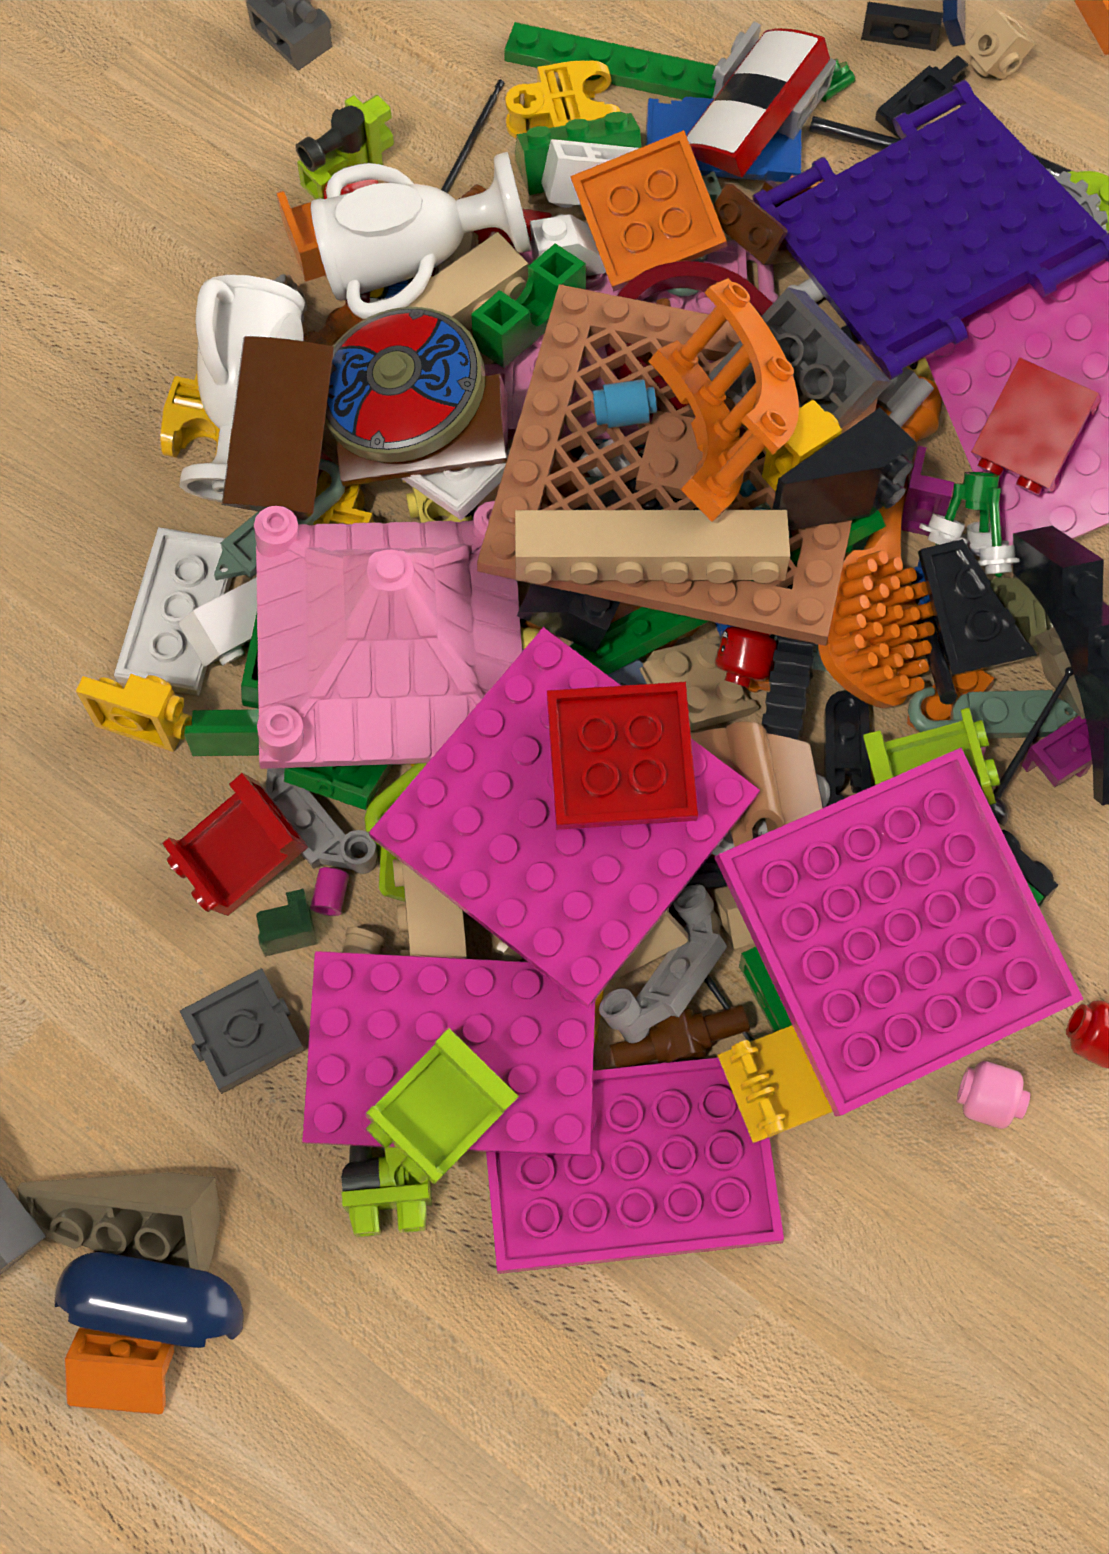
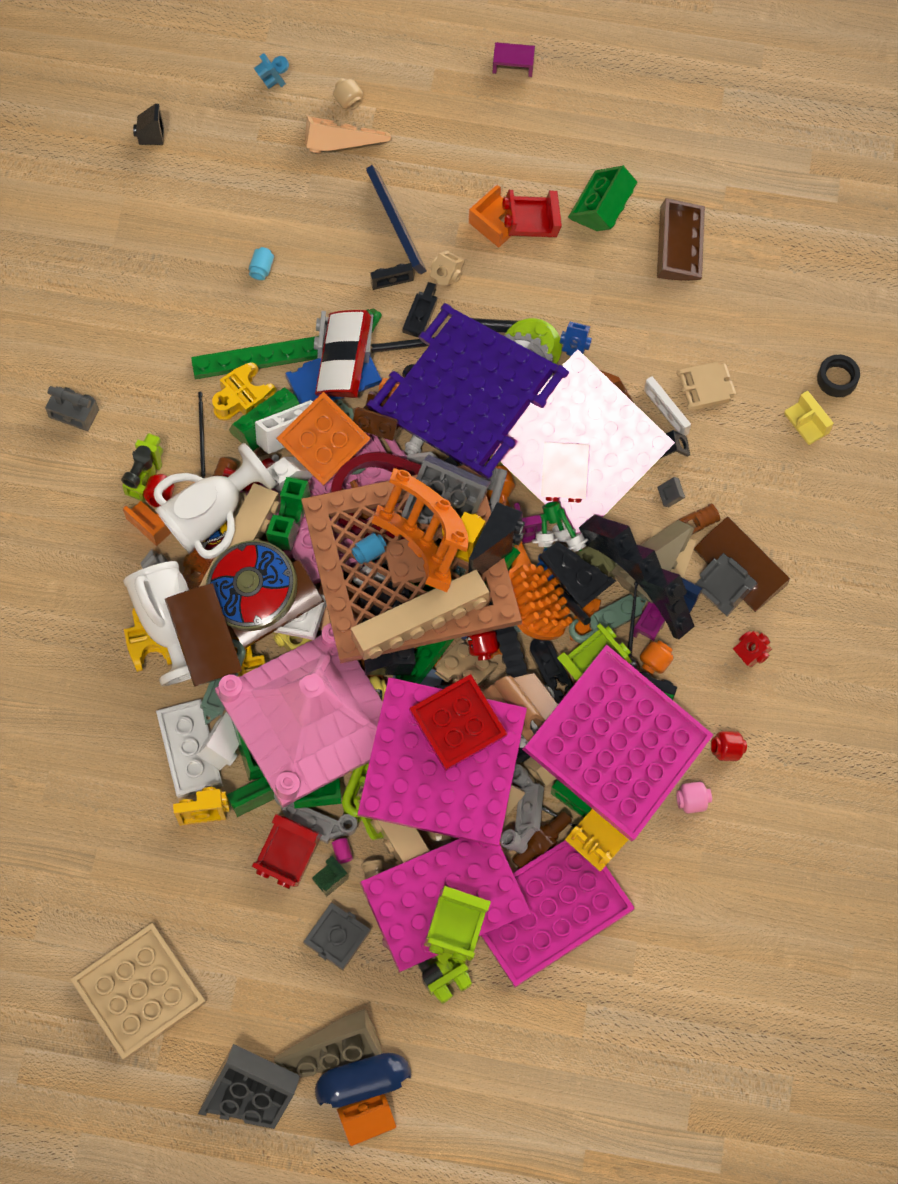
camera: 30 degrees left, 0 degrees up
(1046, 819) = (656, 657): none -> orange head

